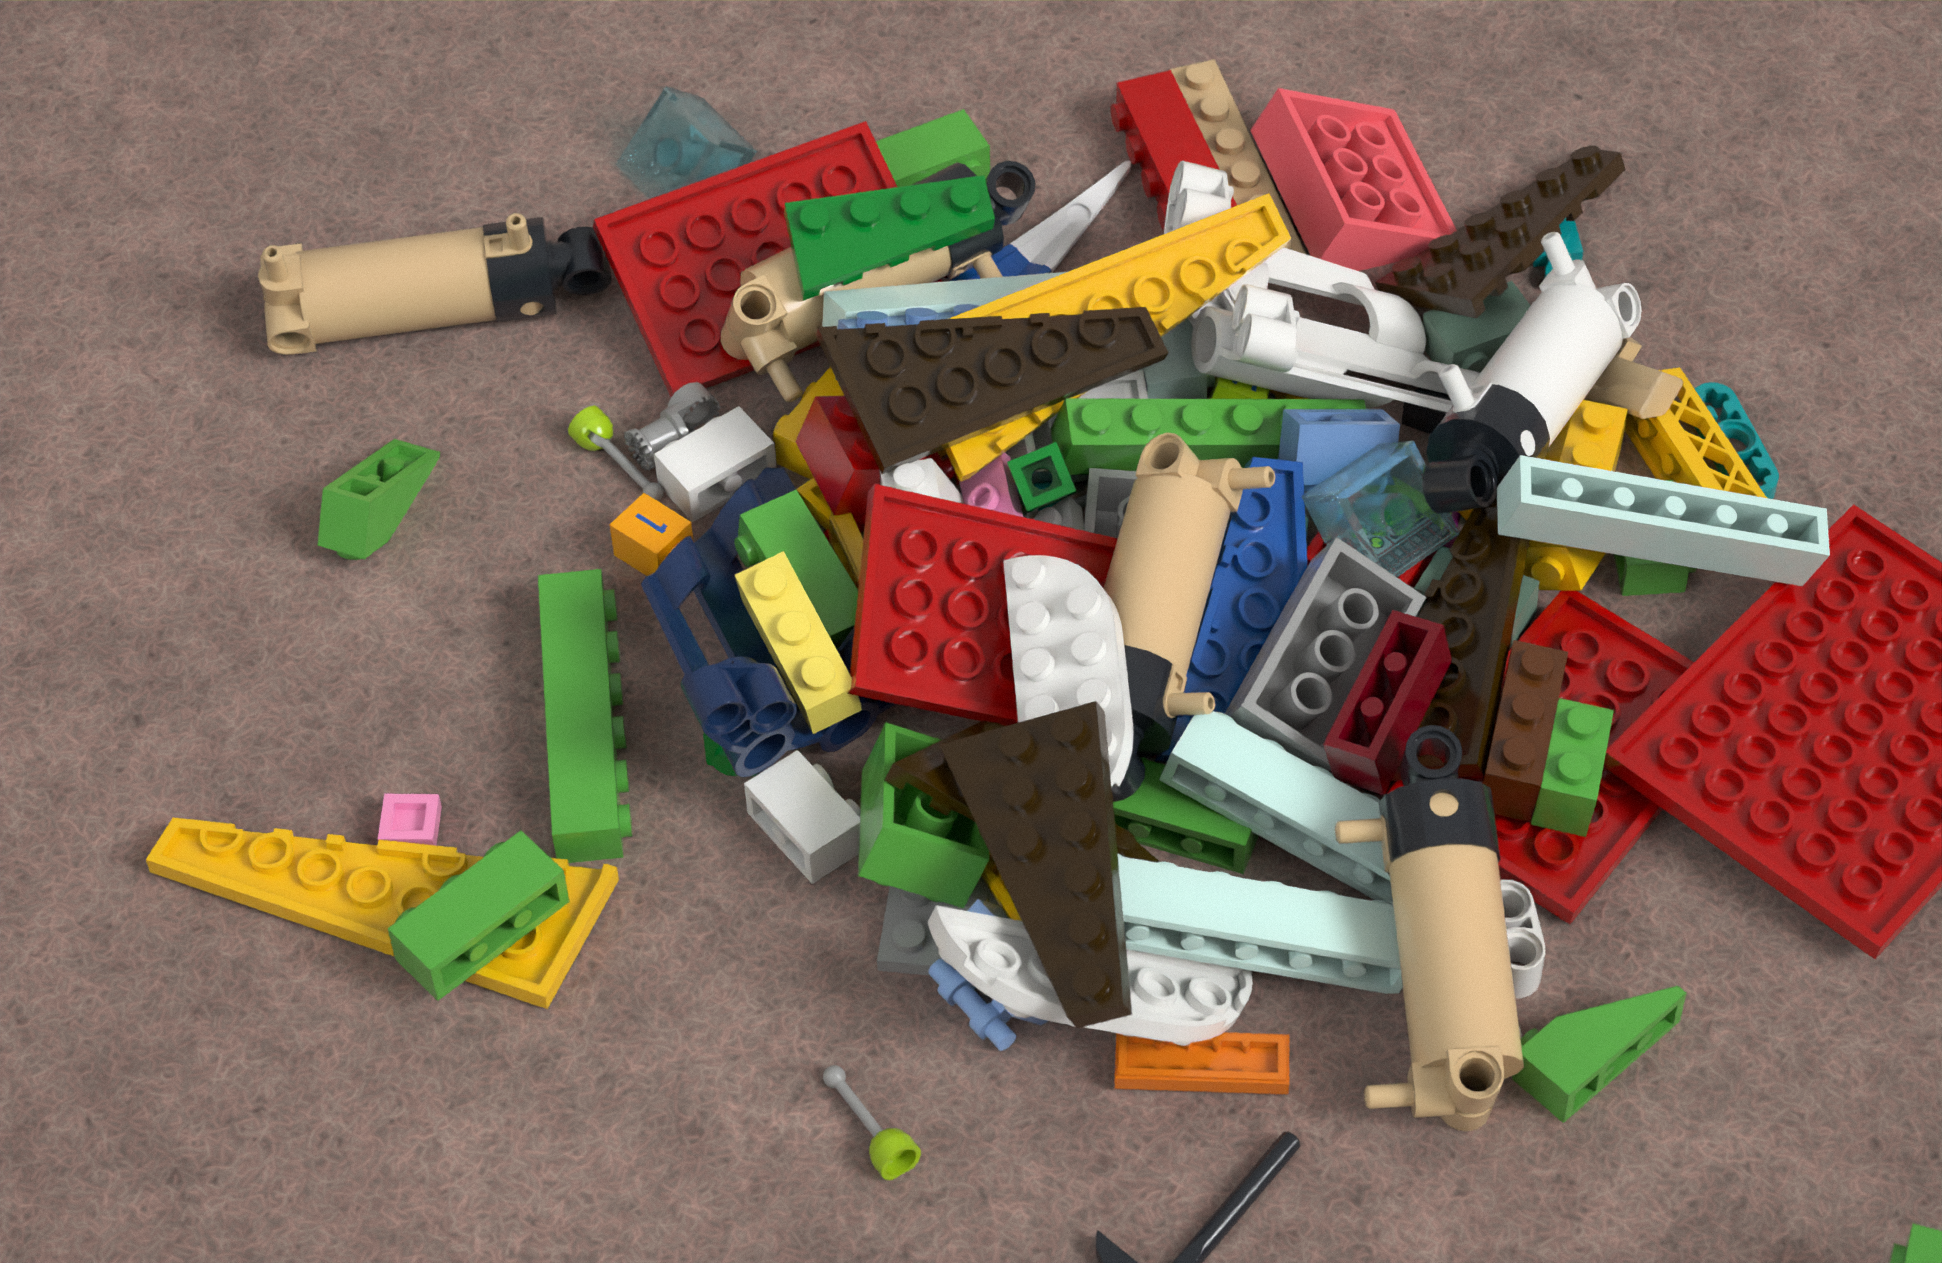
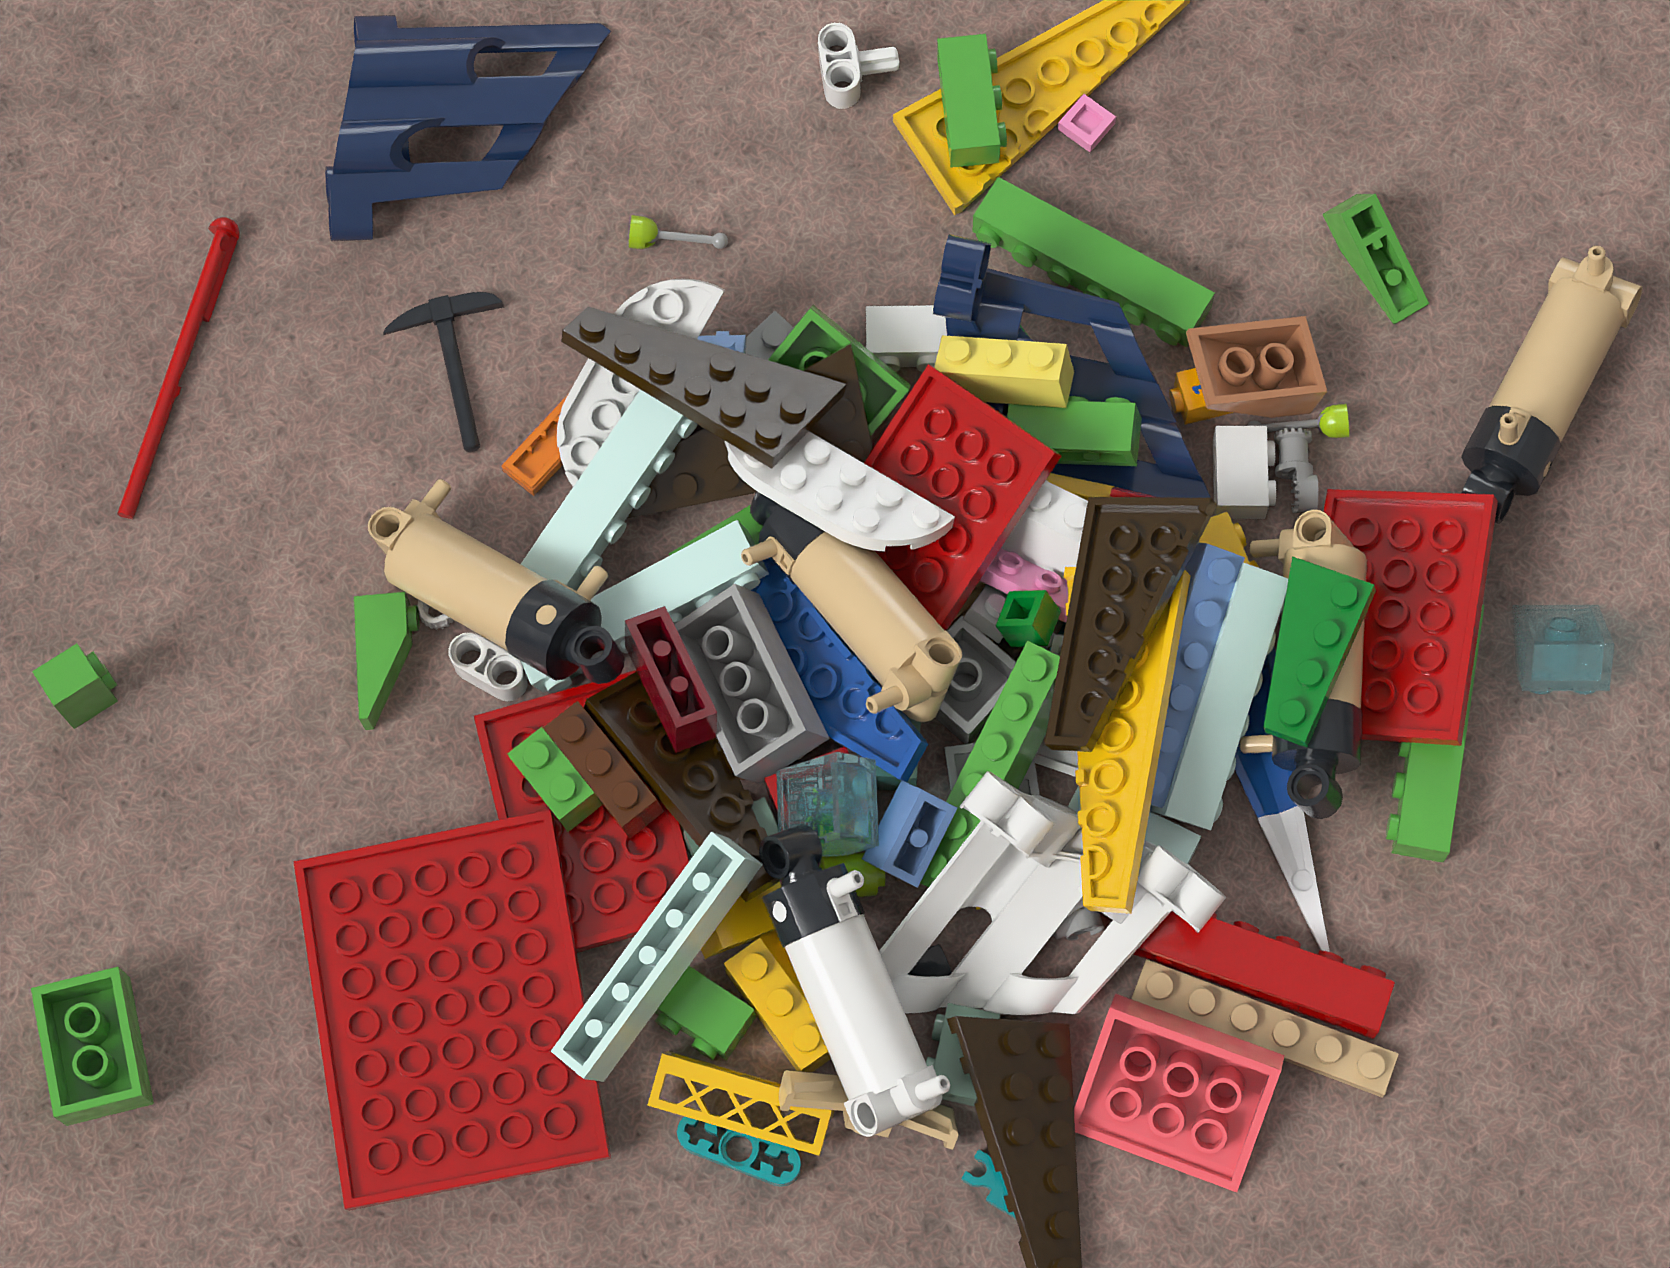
camera: 130 degrees right, 20 degrees up
(512, 1085) = (849, 64): none -> white beam
(592, 484) = (1258, 367): none -> nougat slope

